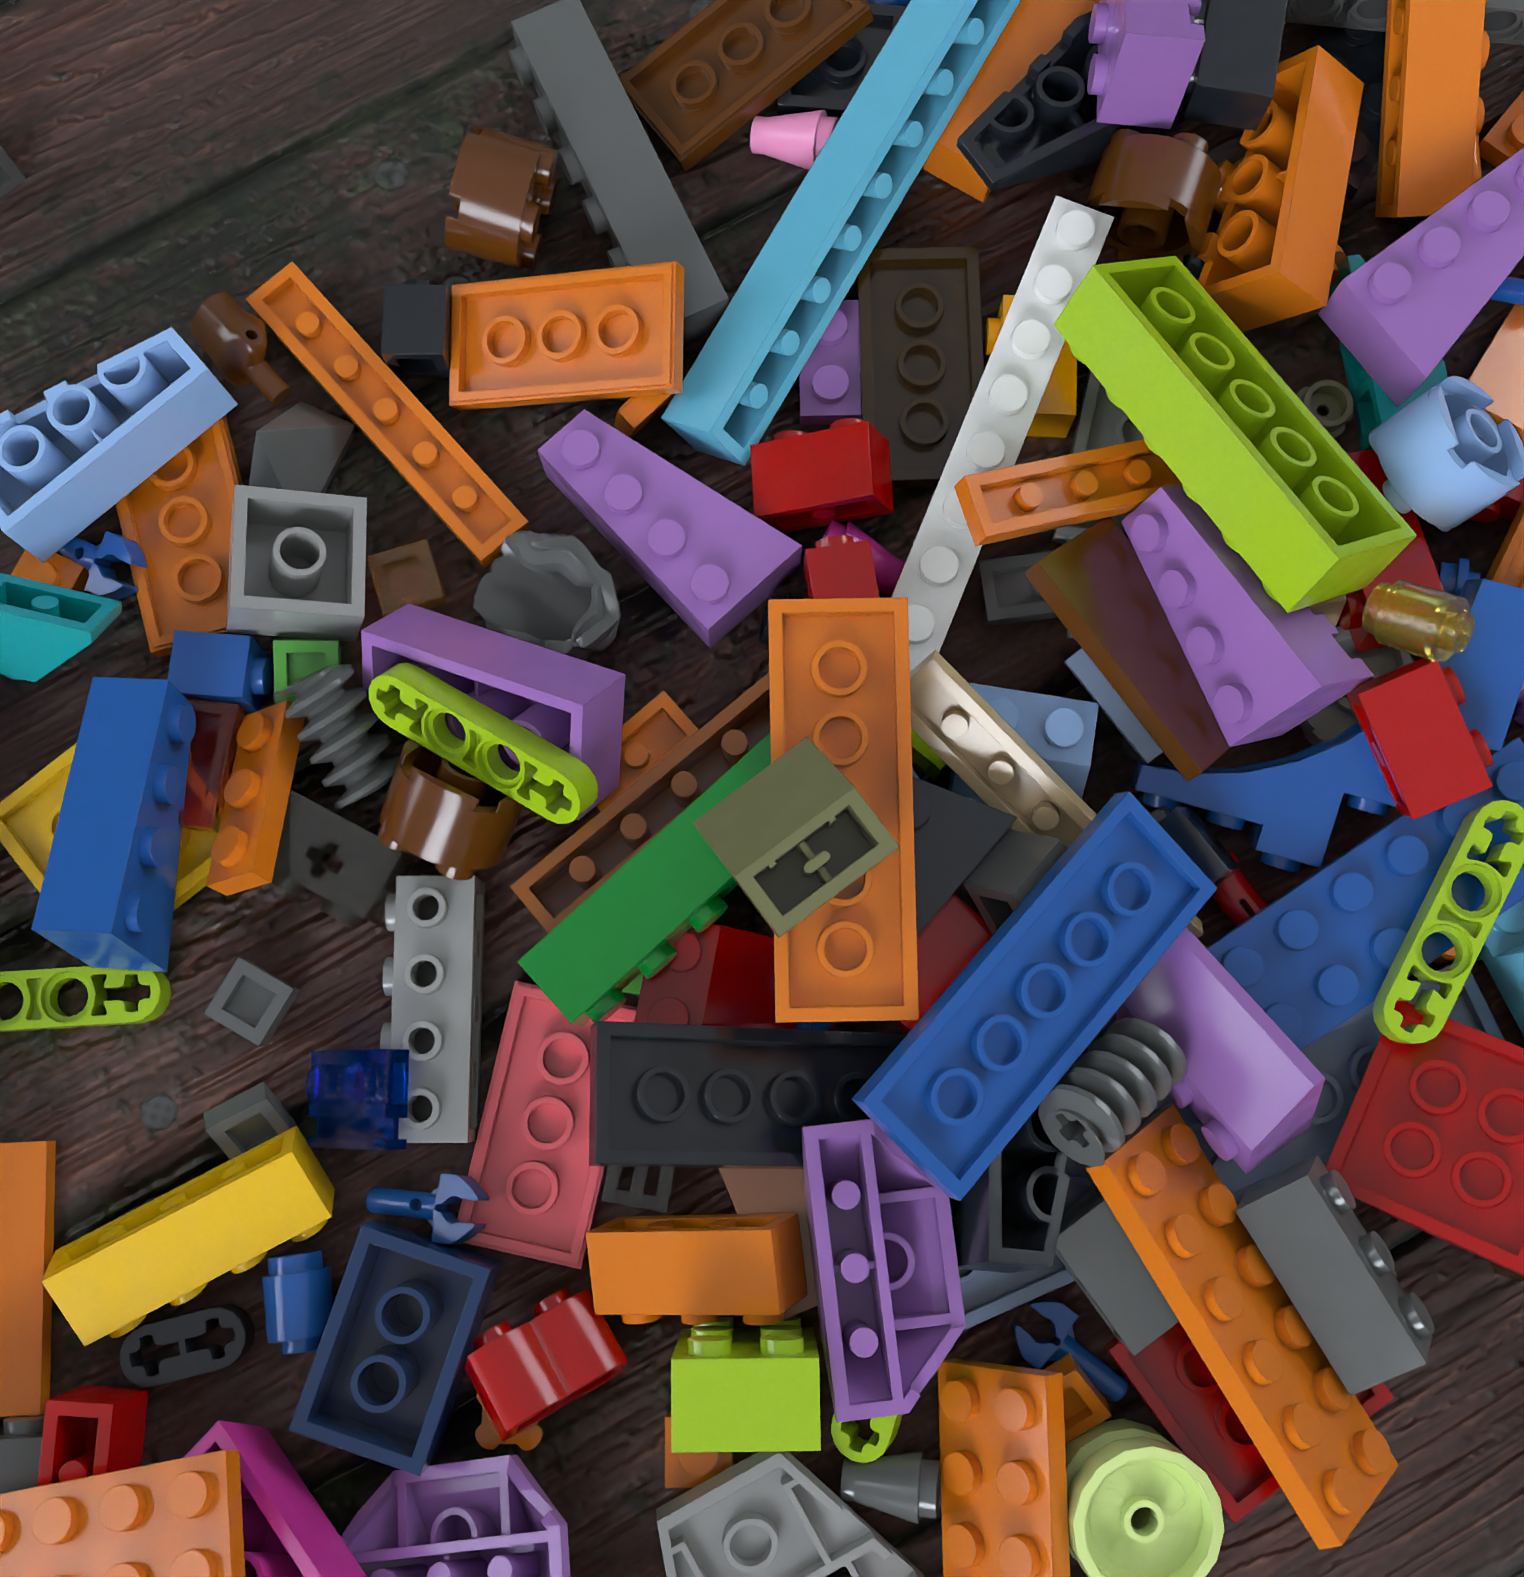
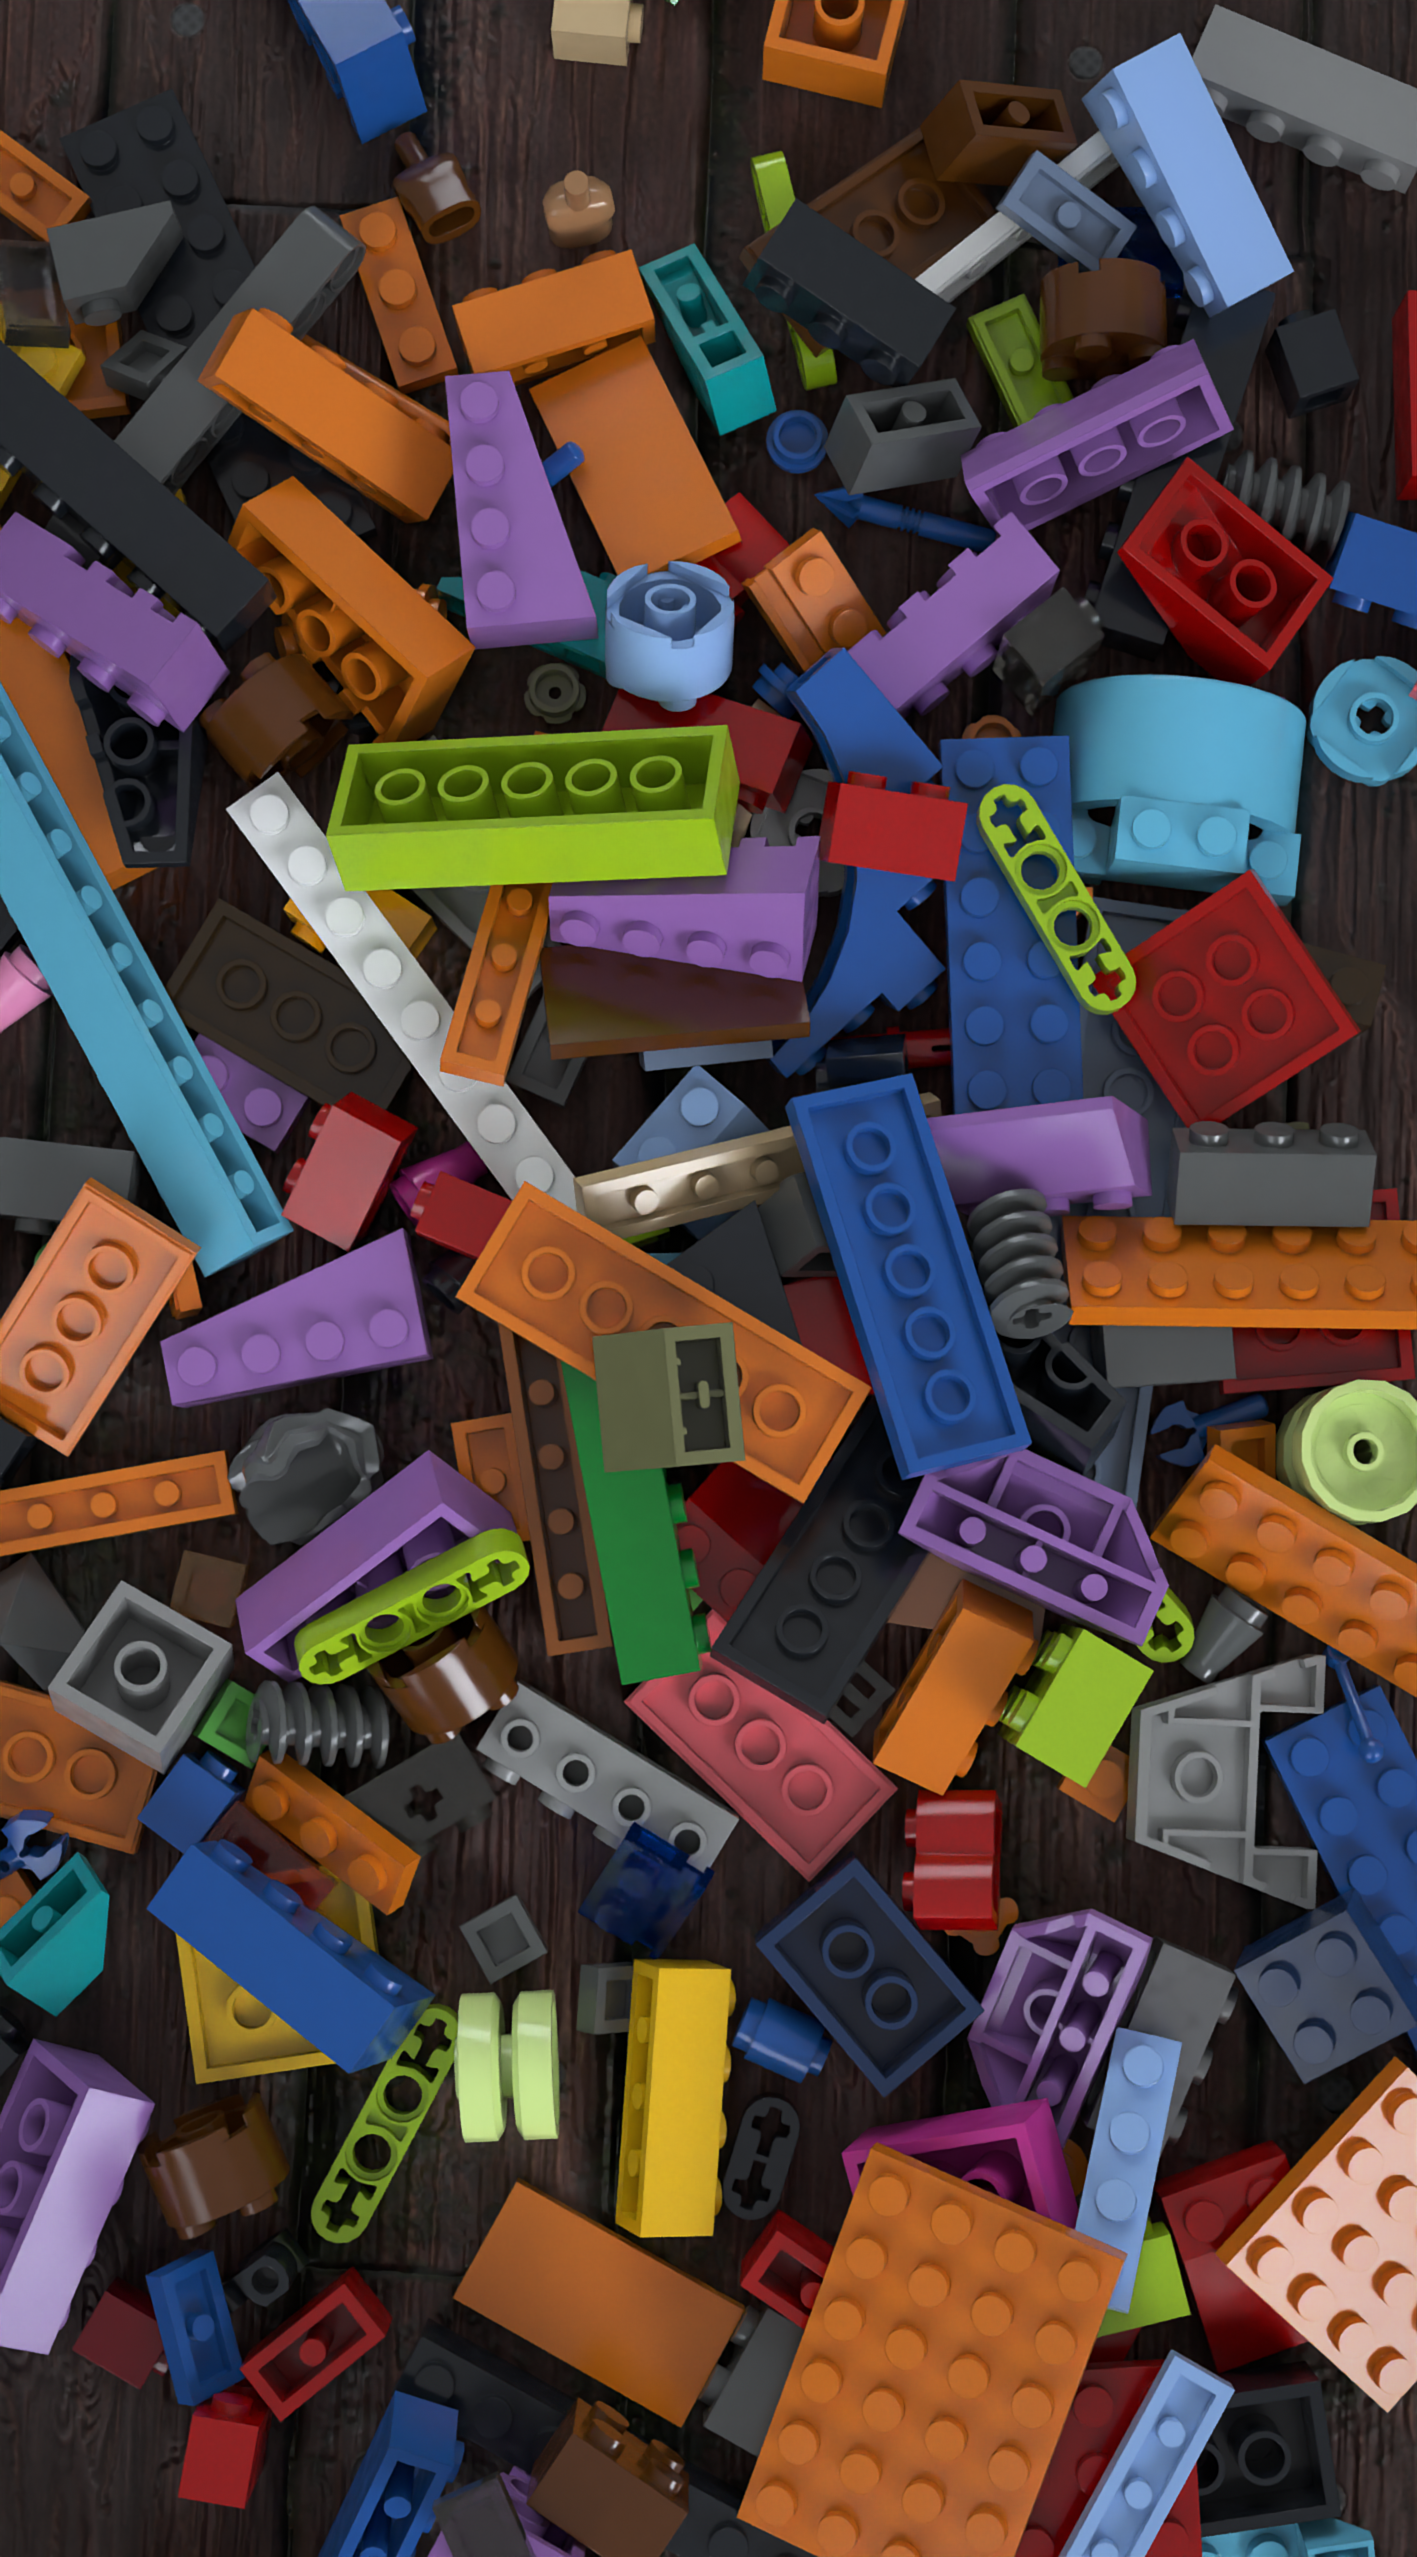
camera: 60 degrees left, 5 degrees up
(133, 1071) = (505, 2066): none -> yellowish green wheel
(432, 1206) = (771, 1882): blue bar -> none
(1419, 619) = (796, 766): clear yellow brick -> none

